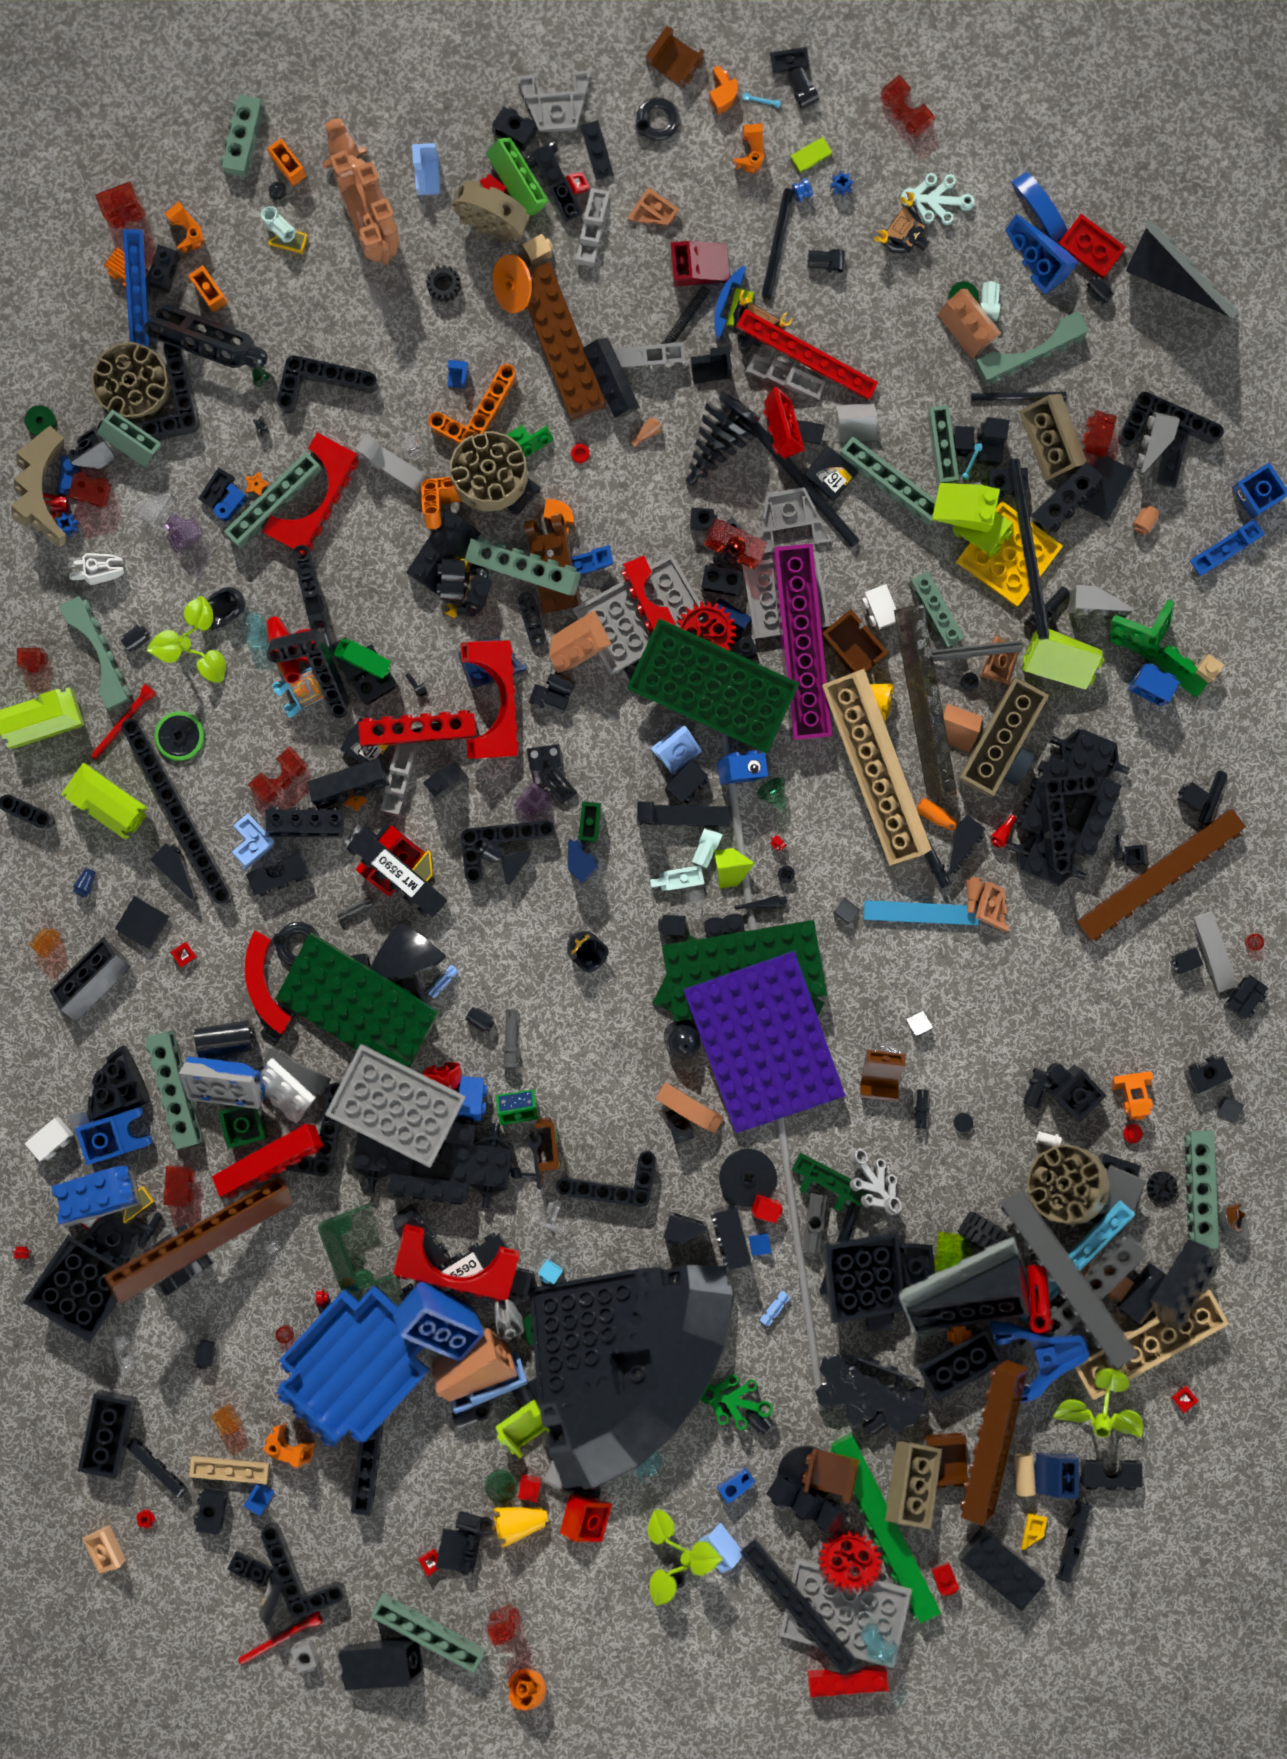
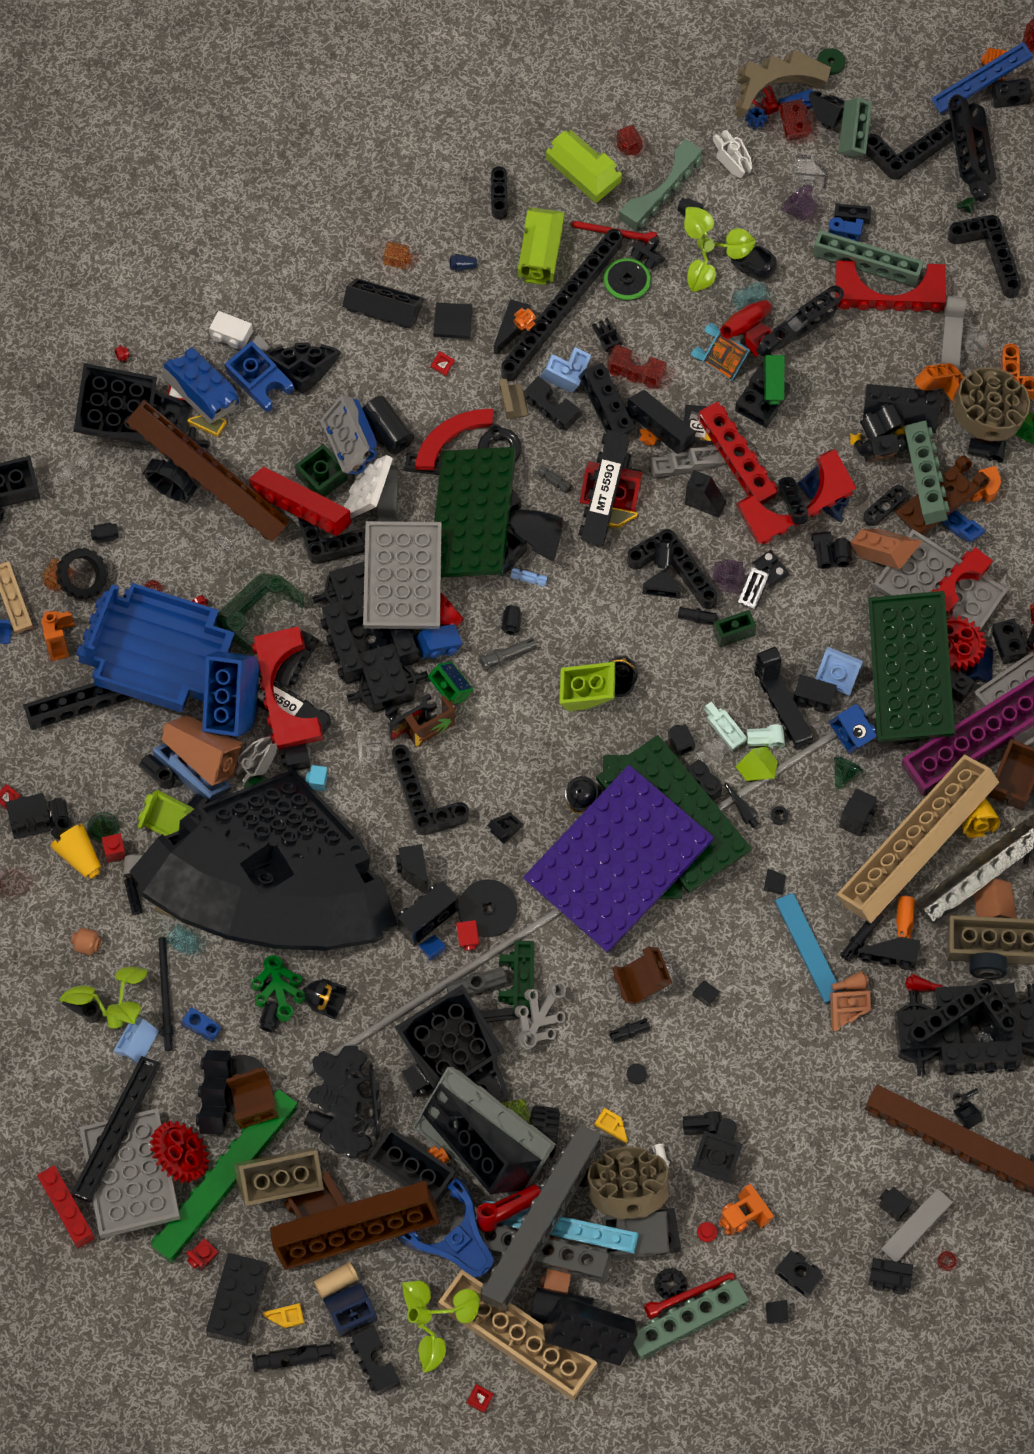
camera: 60 degrees right, 20 degrees down
(113, 380) = (903, 110): dark tan brick -> none
(160, 702) = (649, 250): none -> black hips
(169, 1101) = (304, 426): sand green brick -> none
(179, 1185) = (242, 445): clear red brick -> none
(180, 858) = (524, 319): none -> orange gear
(208, 289) = (1015, 132): orange brick -> none
(232, 785) = (607, 336): none -> black arm
(251, 484) = (874, 237): orange plate -> none
(254, 906) = (512, 400): none -> dark tan panel
(260, 1397) = (98, 565): none -> black tyre
(261, 425) = (925, 222): black bush -> none
(320, 667) = (746, 348): black beam -> none
(420, 689) = (773, 445): black hand -> none
(491, 703) = (790, 501): none -> black beam
(557, 847) = (697, 615): none -> black pin
(580, 863) = (694, 634): dark blue slope -> none
(584, 986) = (587, 685): none -> lime slope
(585, 1519) = (108, 909): red slope -> none
(607, 1553) = (86, 941): none -> nougat head
(689, 1108) = (525, 828): nougat arch -> none
(724, 1516) = (167, 1029): none -> black bar
(765, 1365) = (325, 997): none -> black helmet
(775, 1308) = (380, 986): light blue axle -> none
(777, 843) = (803, 795): red plate -> none
(819, 803) = (858, 812): none -> black brick
(877, 1643) = (116, 1206): clear light blue leg -> none
(998, 1166) = (611, 1124): none -> yellow tile
(1181, 1214) = (653, 1309): none -> red piece
(1233, 1222) = (673, 1362): dark grey piece -> none

